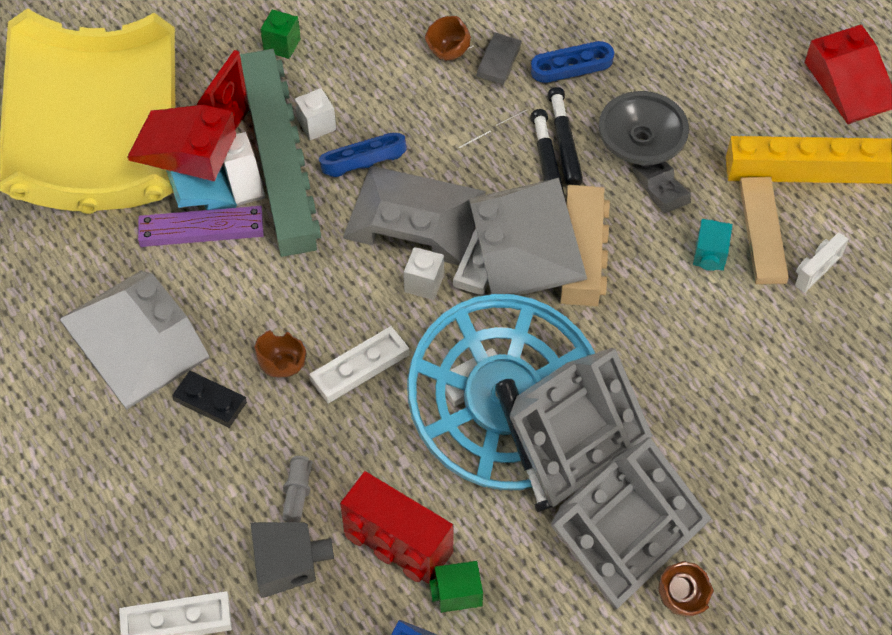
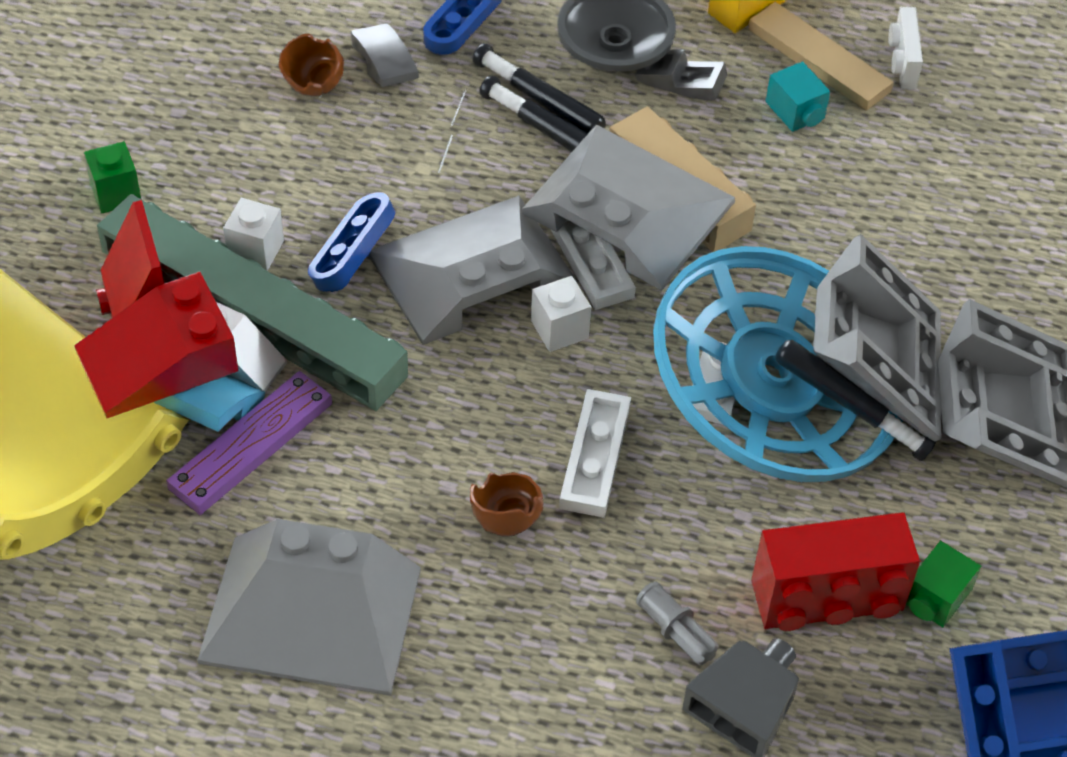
camera: 45 degrees left, 5 degrees down
(209, 399) = (474, 609): black plate -> none

